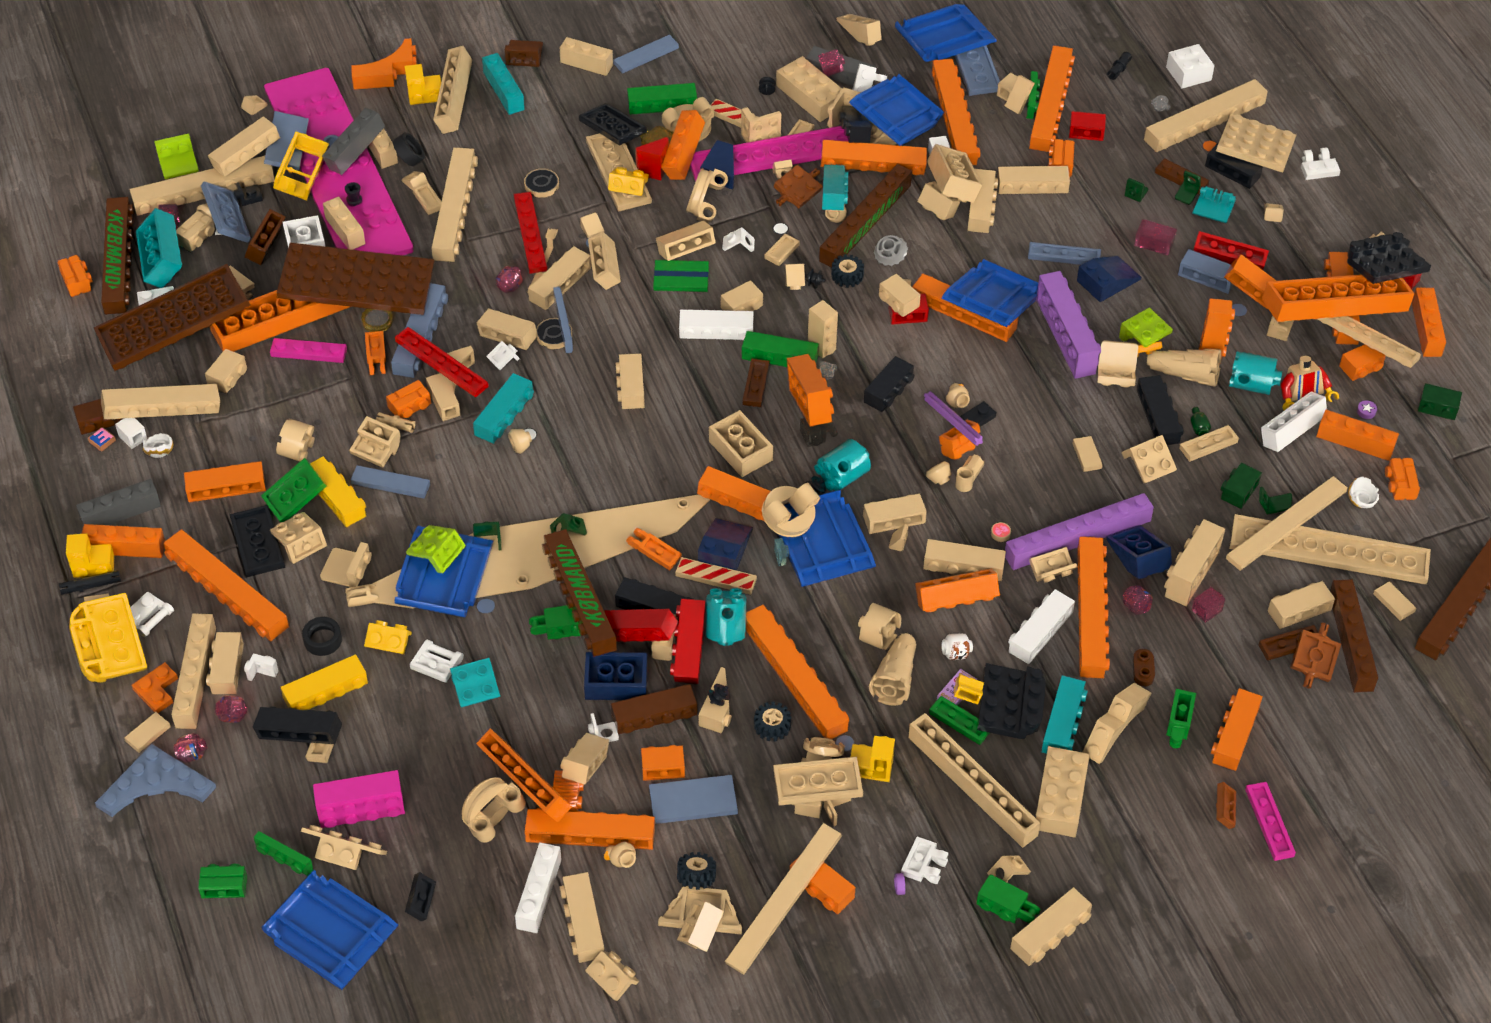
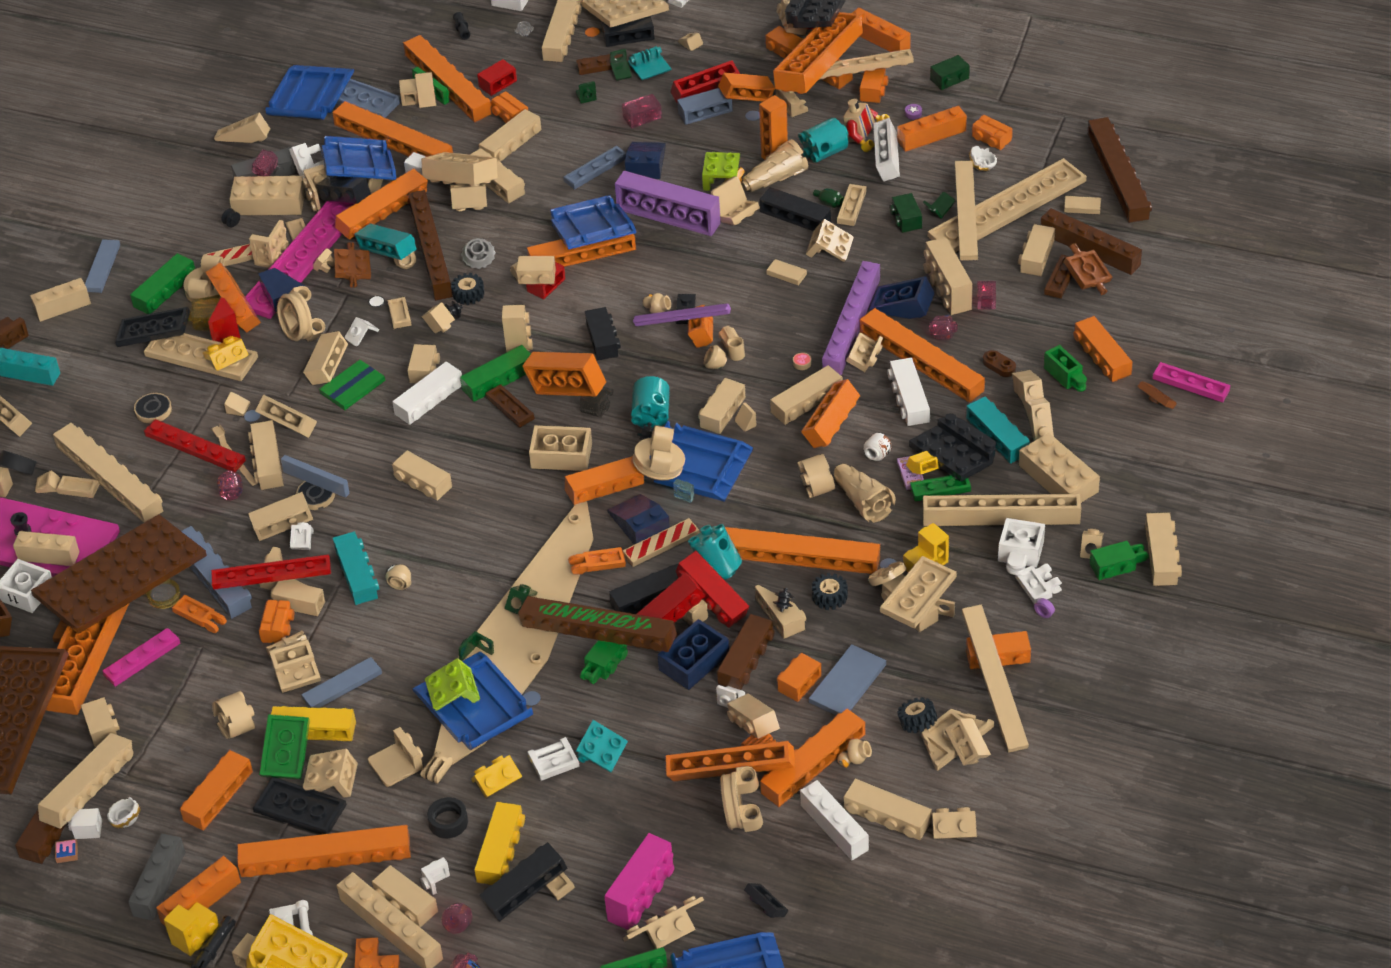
camera: 45 degrees left, 5 degrees down
(940, 814) = (1020, 545): none -> white brick

